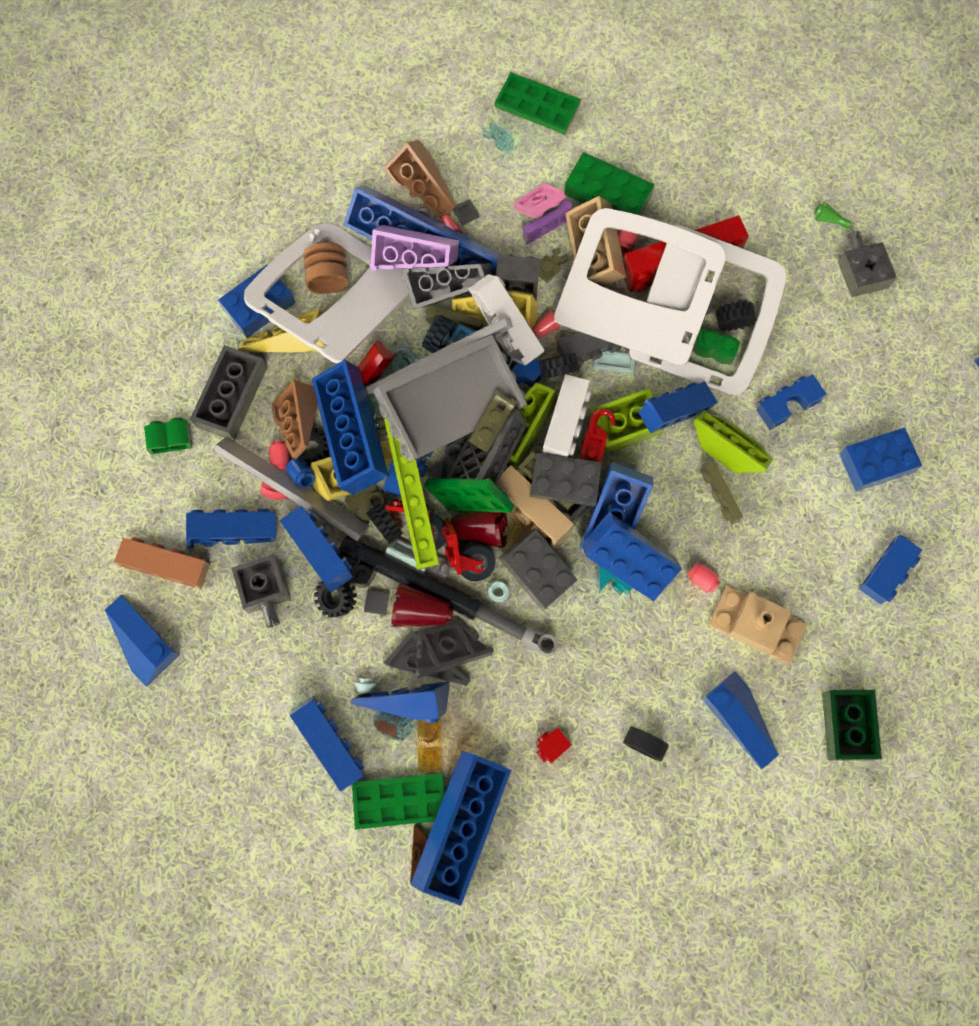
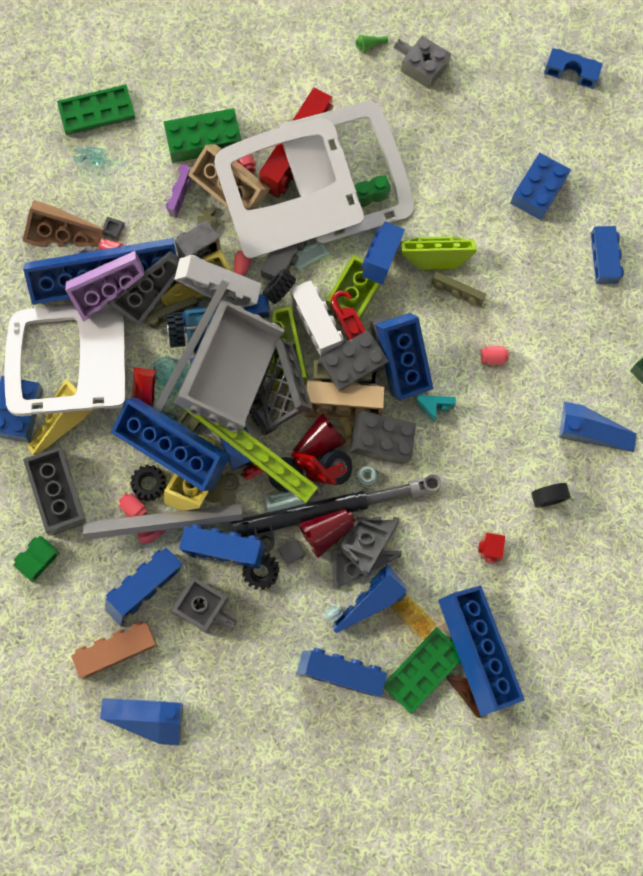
camera: 45 degrees left, 0 degrees up
(295, 414) = (120, 467): medium nougat wedge -> none
(300, 472) = (160, 505): blue brick -> none
(325, 268) = (48, 346): medium nougat wheel -> none
(384, 523) = (250, 492): black tyre -> none
(393, 726) = (375, 624): clear light blue rock -> none
(469, 495) = (297, 423): green plate -> none
(491, 421) = (269, 360): olive plate -> none
(539, 200) = (160, 180): bright pink plate -> none
(631, 556) = (439, 378): blue brick -> none
(736, 315) = (366, 159): black tyre -> none
(758, 624) = (553, 358): tan brick -> none
(804, 391) = (455, 178): blue arch -> none

